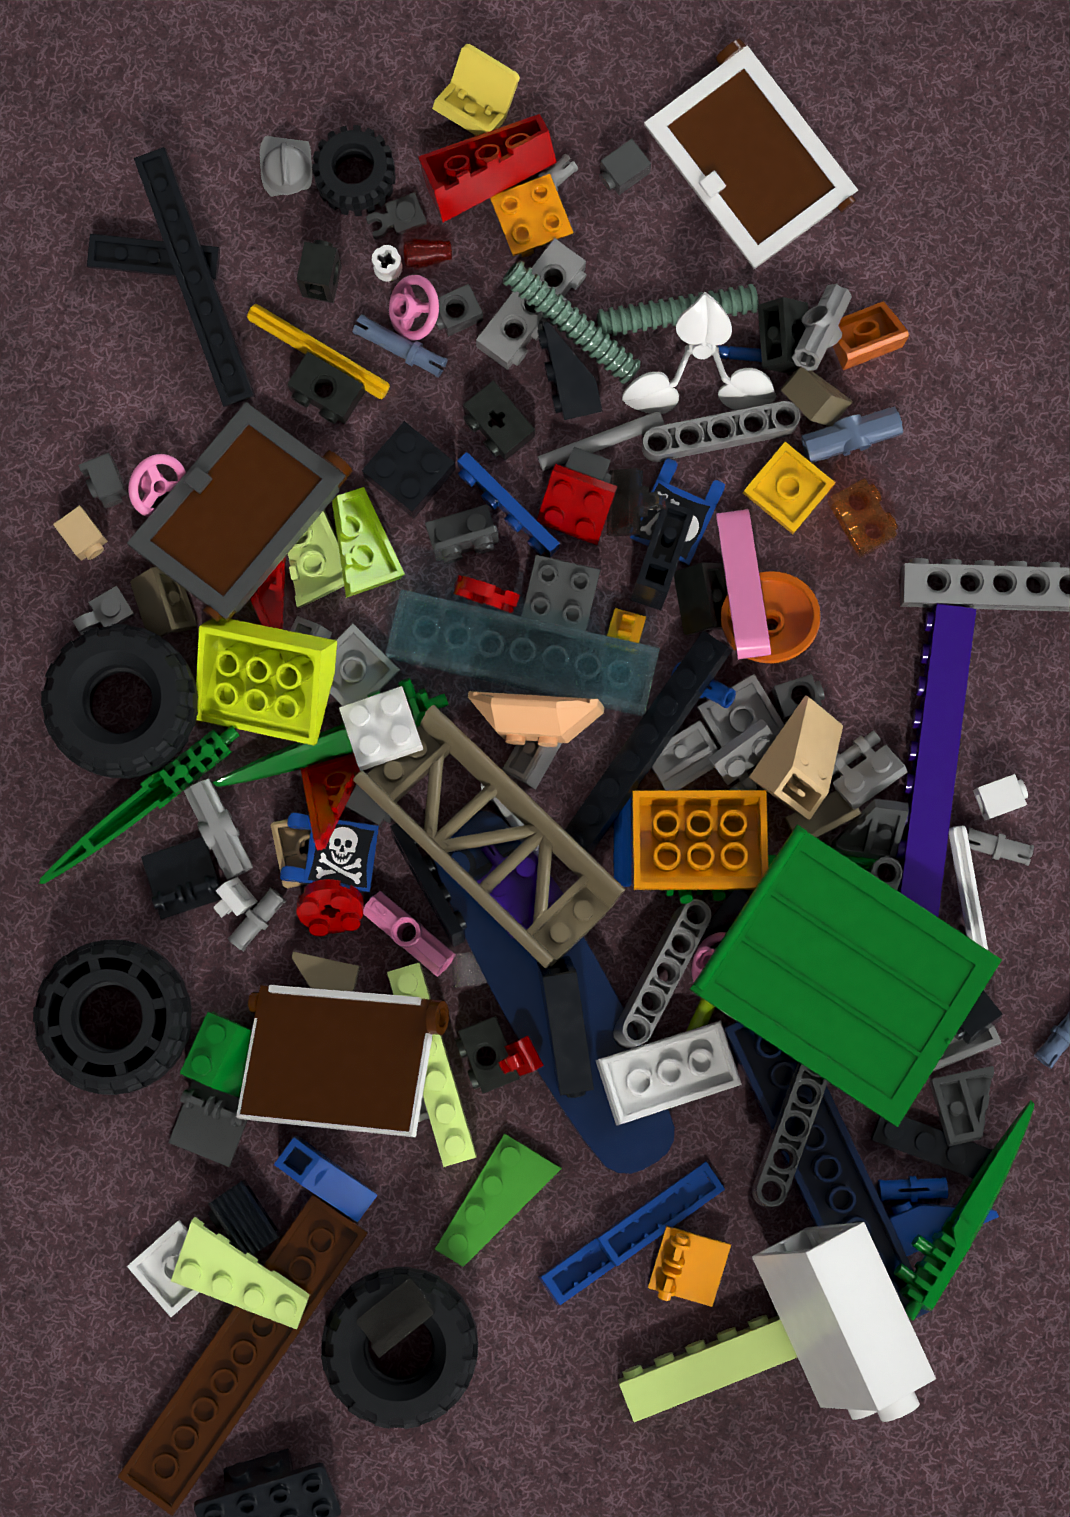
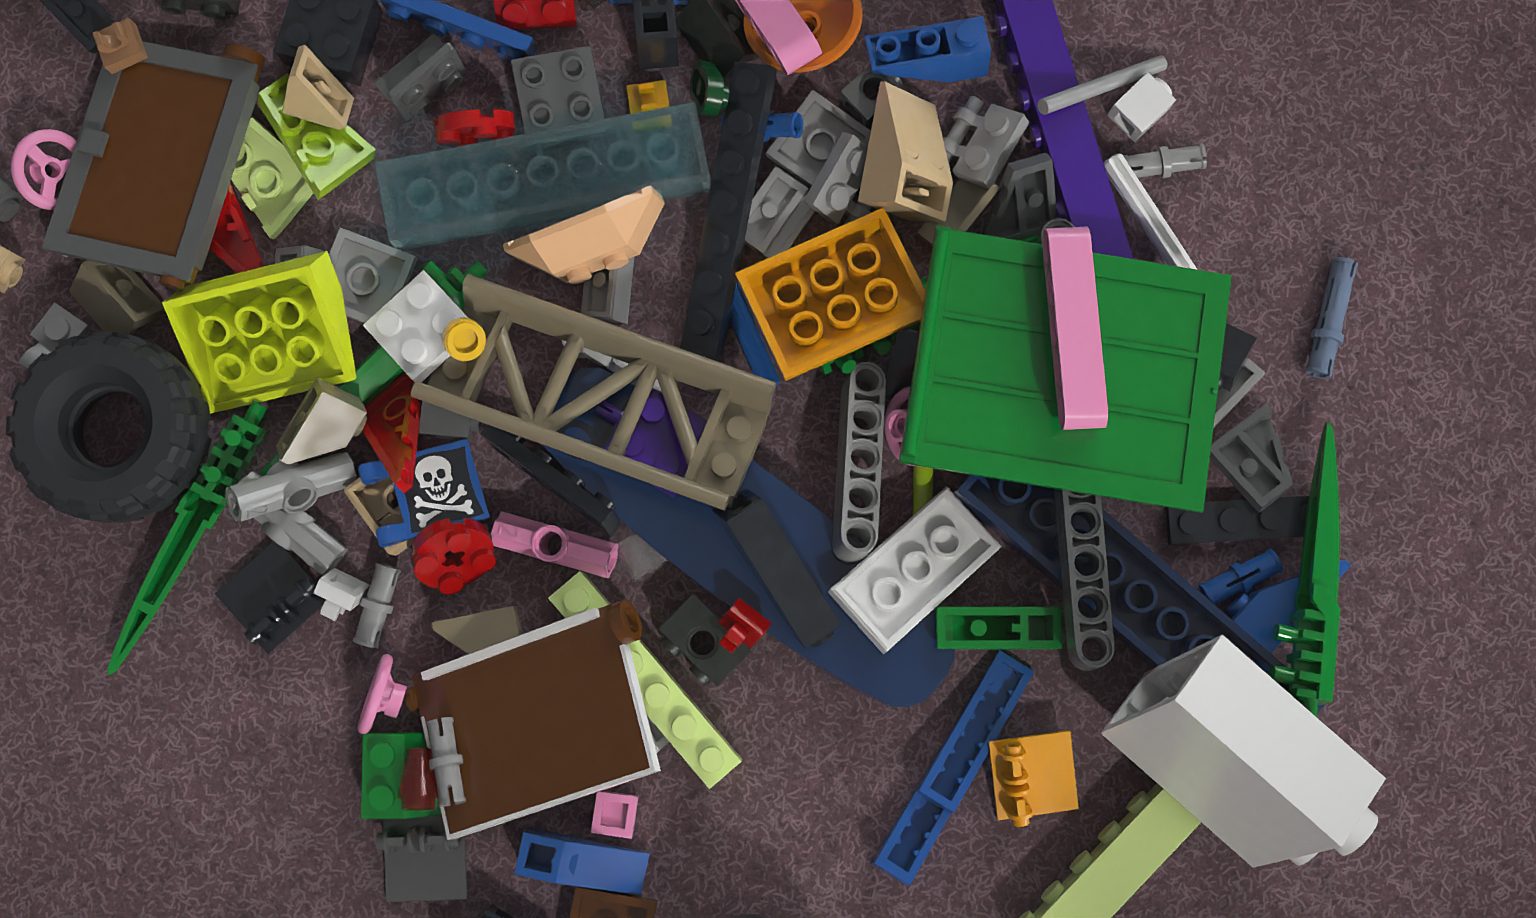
camera: 30 degrees left, 0 degrees up
(163, 1028) = (317, 775): black tyre -> none
(232, 988) = (382, 695): none -> bright pink piece
(233, 1065) = (418, 781): none -> clear red cone
(234, 804) = (290, 486): none -> light grey piece
(249, 414) = (120, 45): none -> medium nougat tile
(260, 1059) = (446, 761): none -> light grey pin
(276, 767) = (322, 423): none -> slope
(364, 1154) = (614, 814): none -> bright pink plate
(379, 515) = (316, 93): none -> tan slope
(409, 753) = (463, 339): none -> yellow tile
(499, 1193) = (785, 789): bright green wing -> none
(674, 640) = (708, 89): none -> dark green plate
(711, 1144) = (998, 628): none -> green slope
(856, 685) = (932, 52): none -> blue slope
(863, 948) = (1075, 328): none -> bright pink beam
(976, 768) = (1101, 85): none -> light grey bar

